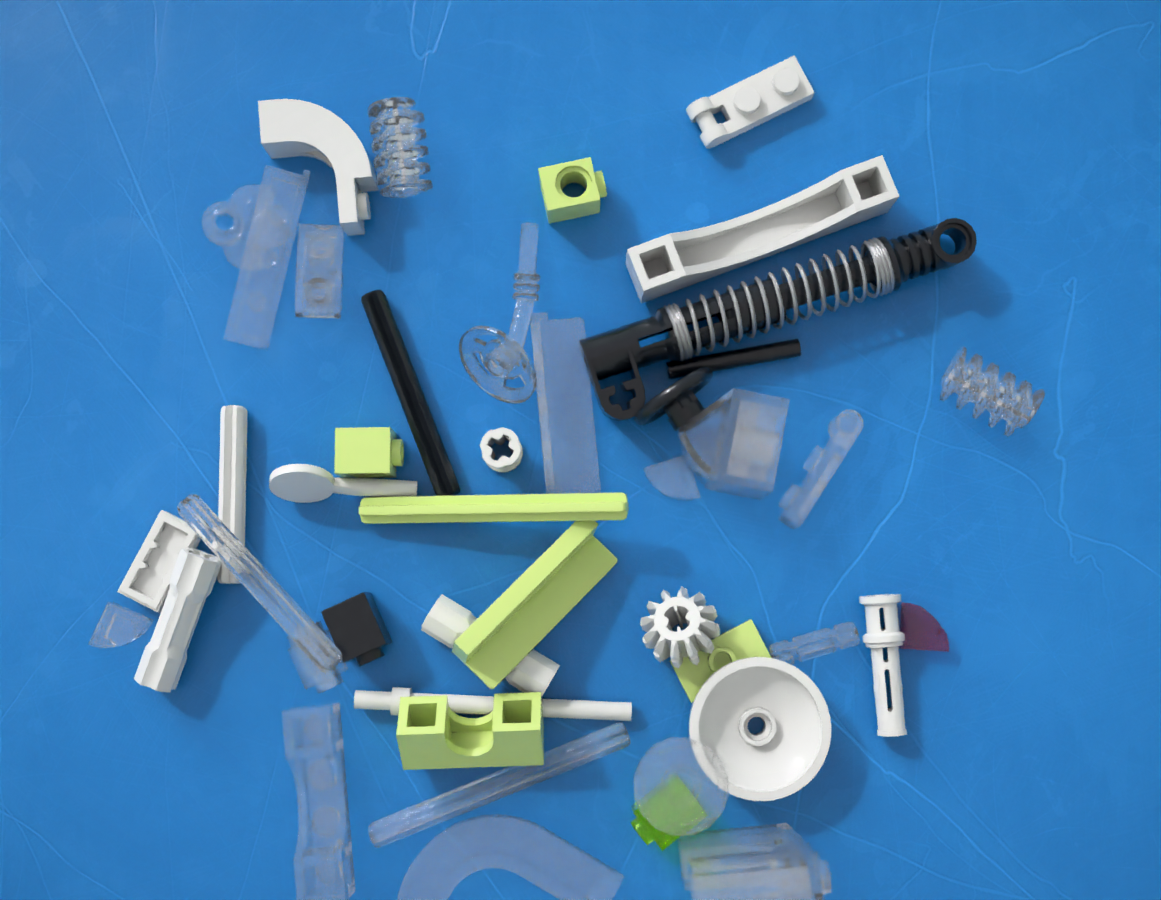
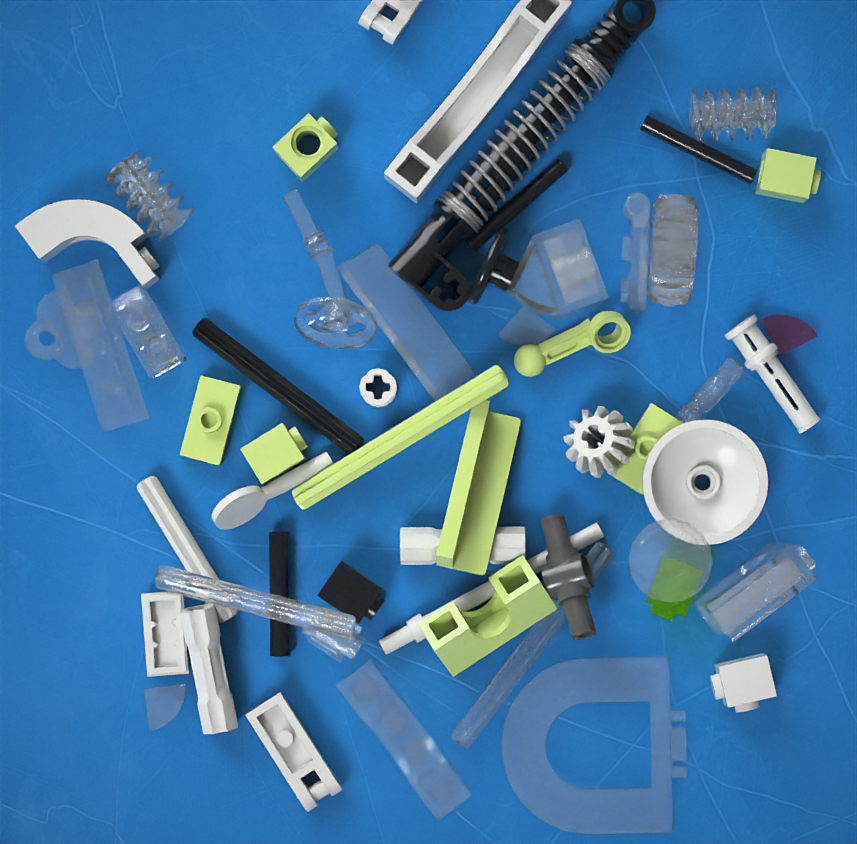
camera: 25 degrees left, 5 degrees up
(209, 747) = (293, 750): none -> white plate
(293, 584) = (279, 585): none -> black piece
(328, 388) = (210, 420): none -> yellowish green plate
(571, 741) = (568, 577): none -> dark grey pin
(663, 510) = (532, 359): none -> yellowish green piece
(859, 485) = (672, 250): none -> clear gear
(935, 408) = (698, 150): none -> black bar
(1008, 481) = (787, 176): none -> yellowish green brick

